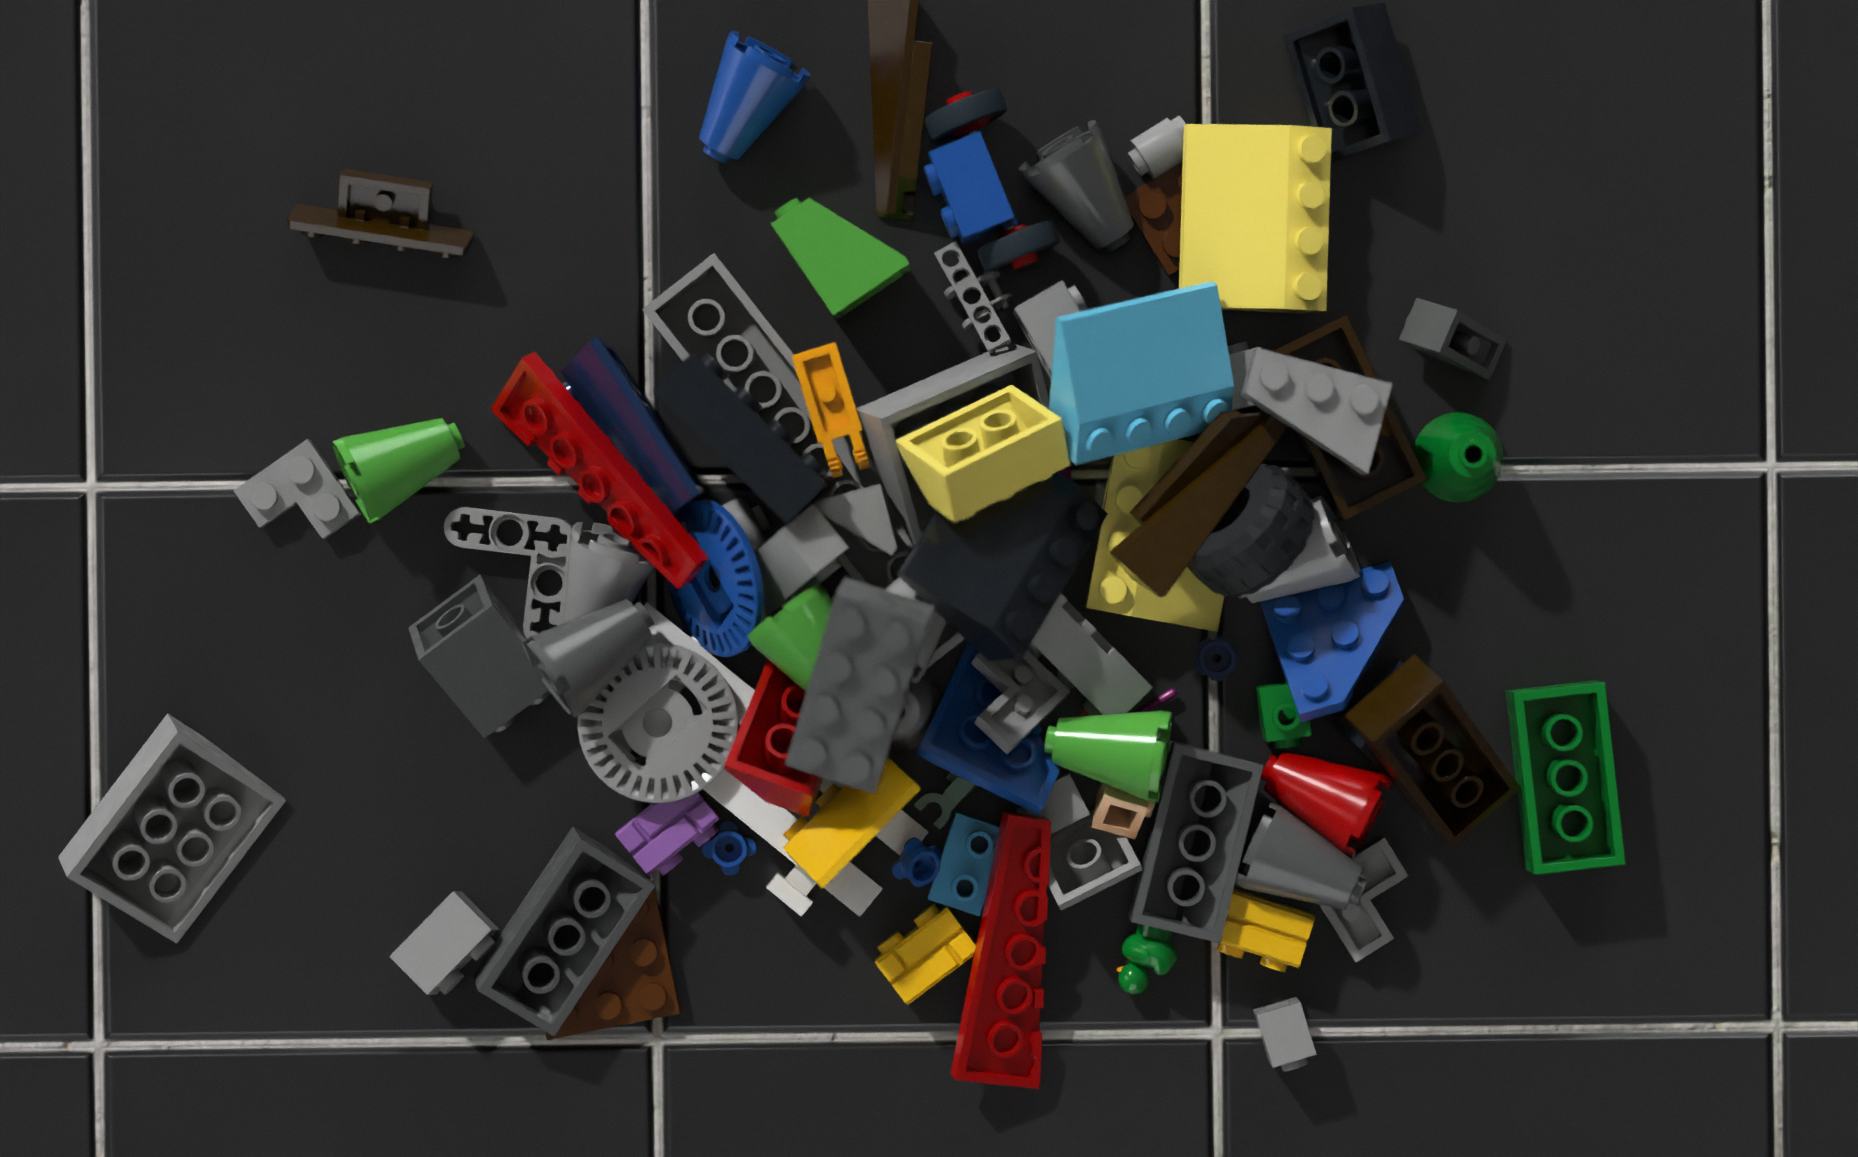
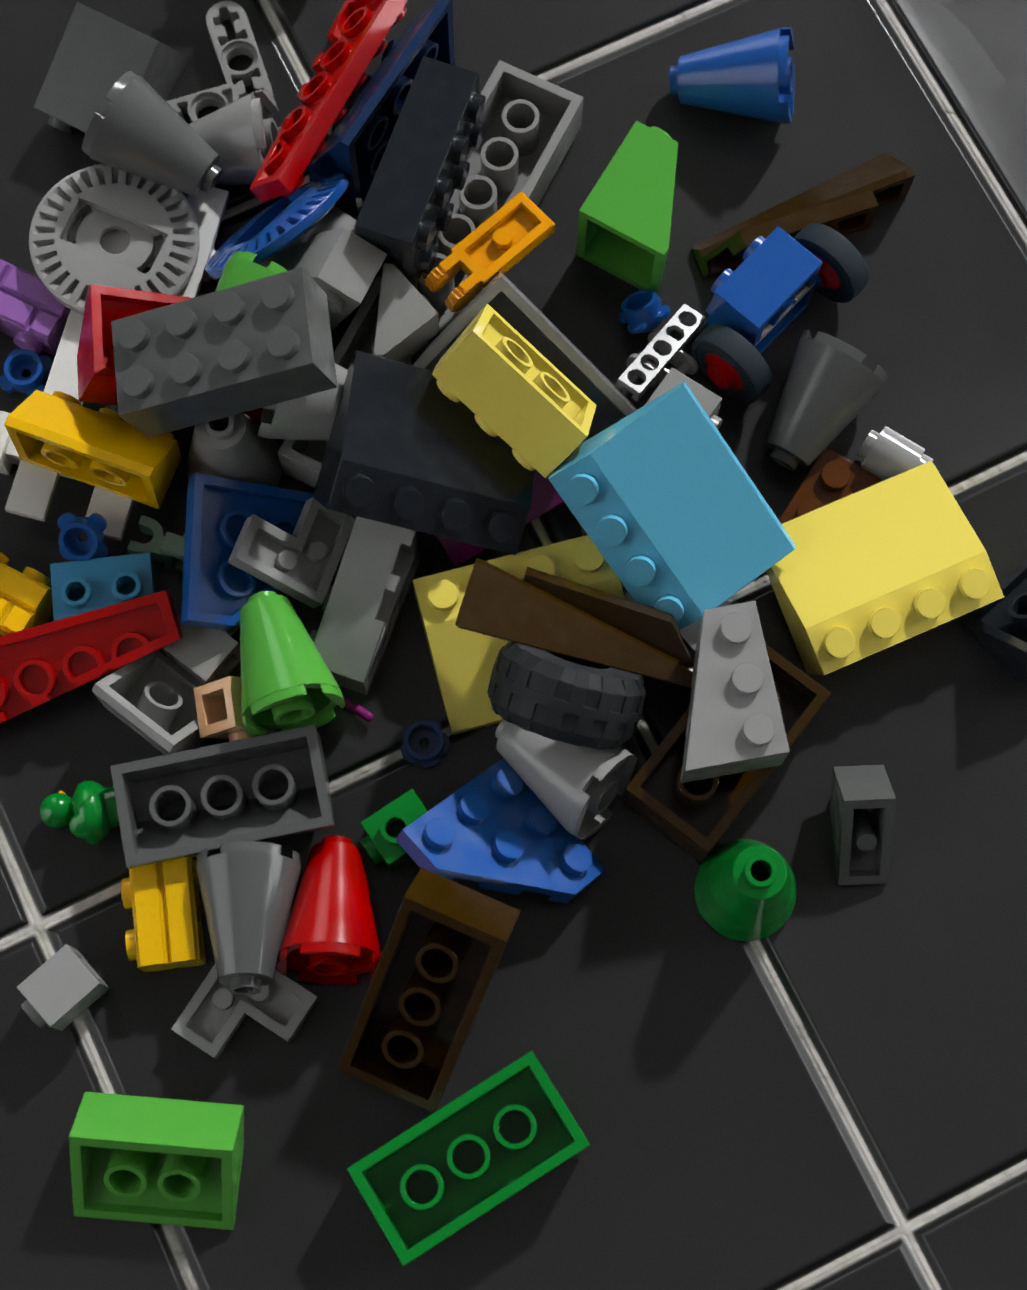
camera: 60 degrees right, 15 degrees down
(925, 292) = (643, 311): none -> blue plate
(1449, 1014) = (157, 1160): none -> bright green slope

